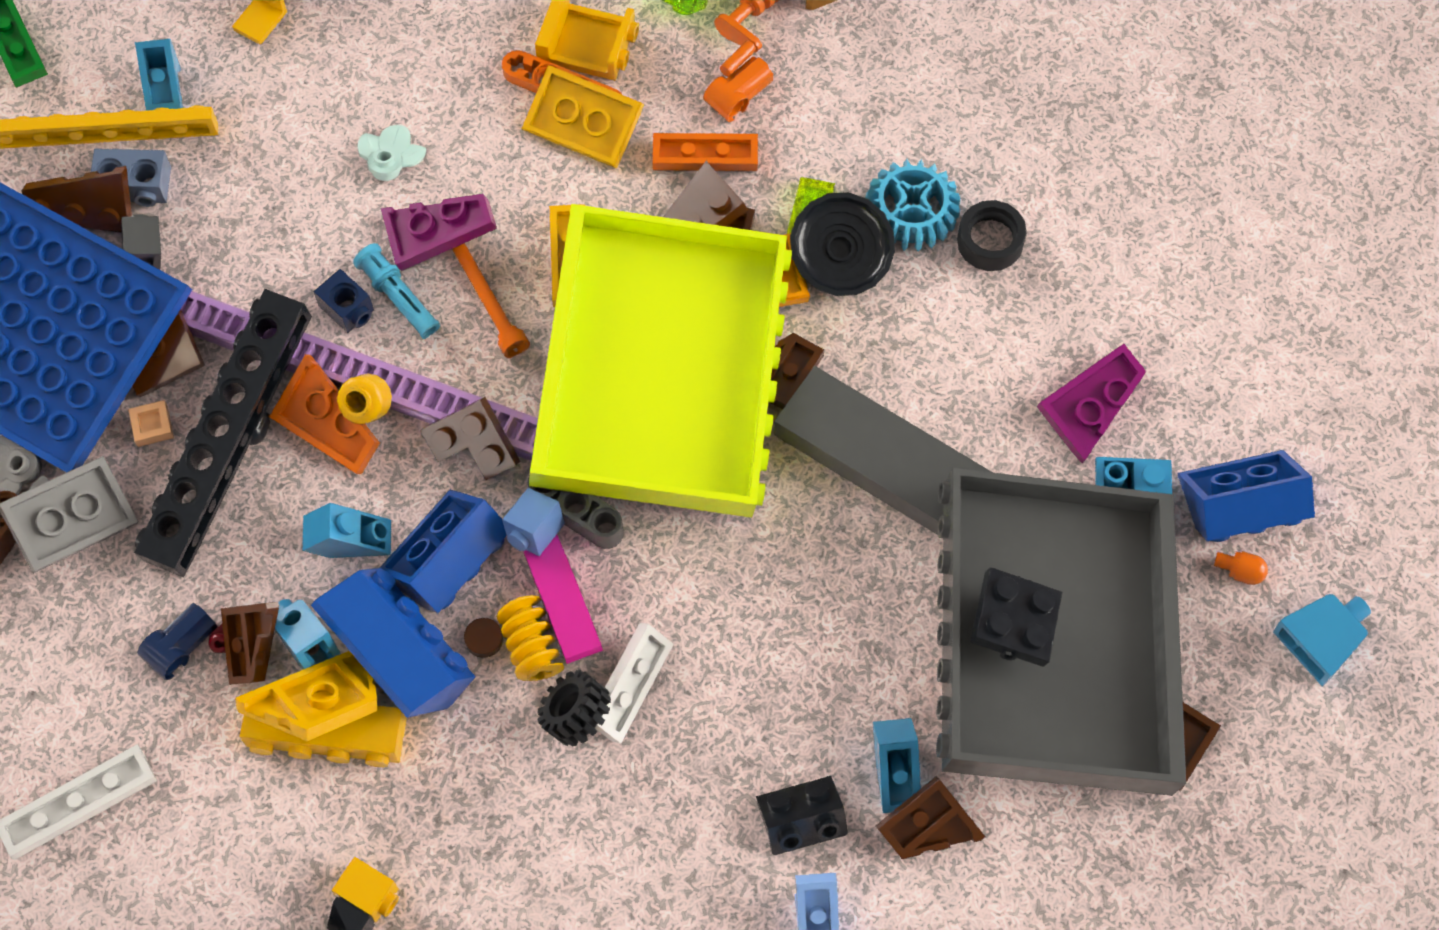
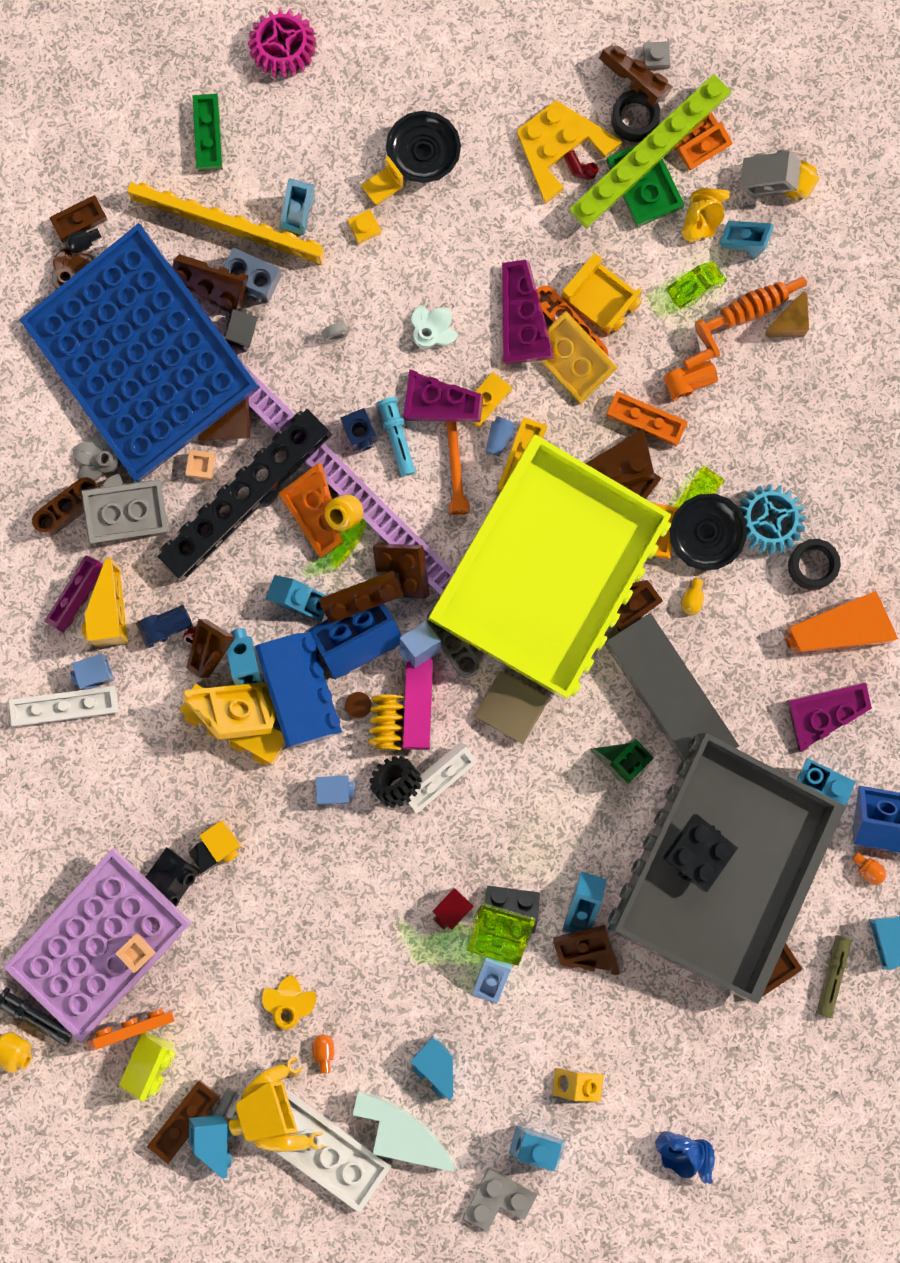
camera: 20 degrees right, 15 degrees up
(38, 649) = (74, 594): none -> magenta plate
(87, 650) = (105, 612): none -> yellow slope
(98, 739) = (91, 672): none -> medium blue brick
(255, 71) = (364, 226): none -> yellow plate
(266, 201) = (335, 332): none -> light grey tile
(388, 433) = (352, 538): none -> clear neon green slope
(431, 496) = (361, 597): none -> reddish brown plate
(495, 756) = (334, 790): none -> medium blue brick
(500, 97) = (523, 319): none -> magenta wing
(502, 195) = (493, 393): none -> yellow plate
(529, 239) = (499, 435): none -> medium blue cone
(688, 557) = (511, 707): none -> dark tan slope
(722, 846) = (451, 910): none -> dark red brick
(800, 837) = (499, 934): none -> clear neon green slope
(860, 333) = (693, 598): none -> yellow cylinder
(864, 564) = (624, 759): none -> dark green slope
(1065, 290) = (847, 626): none -> orange slope
(1261, 703) = (834, 975): none -> olive pin

